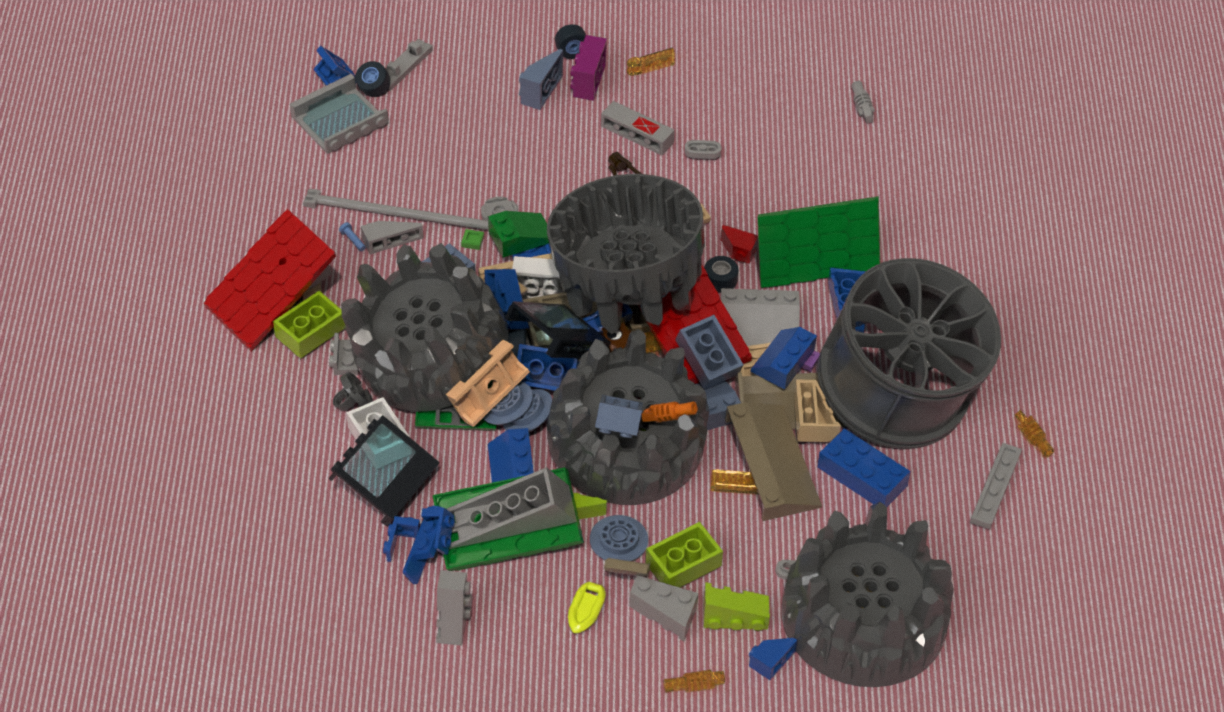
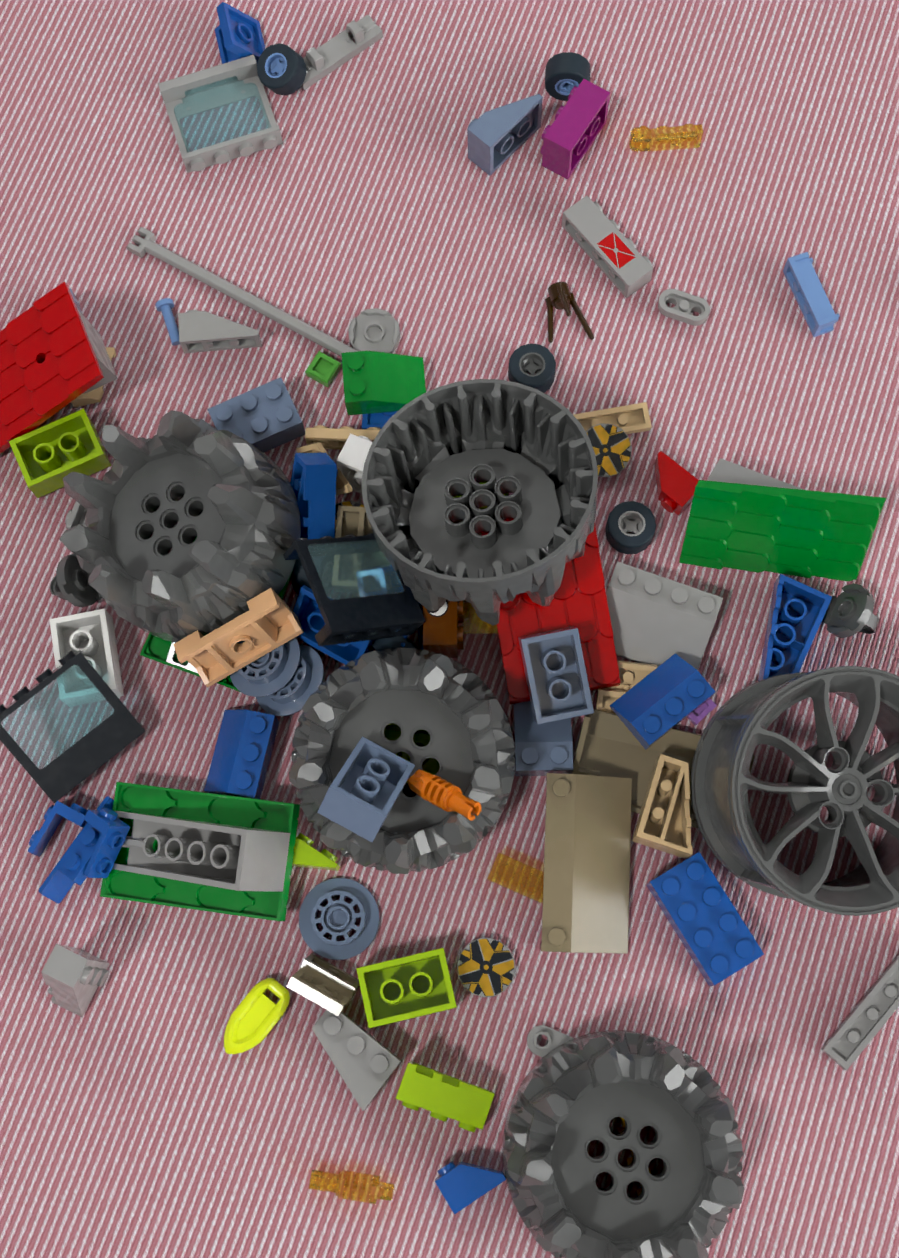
camera: 25 degrees right, 25 degrees up
(732, 537) = (486, 967): none -> tile
(782, 124) = (810, 294): none -> medium blue container

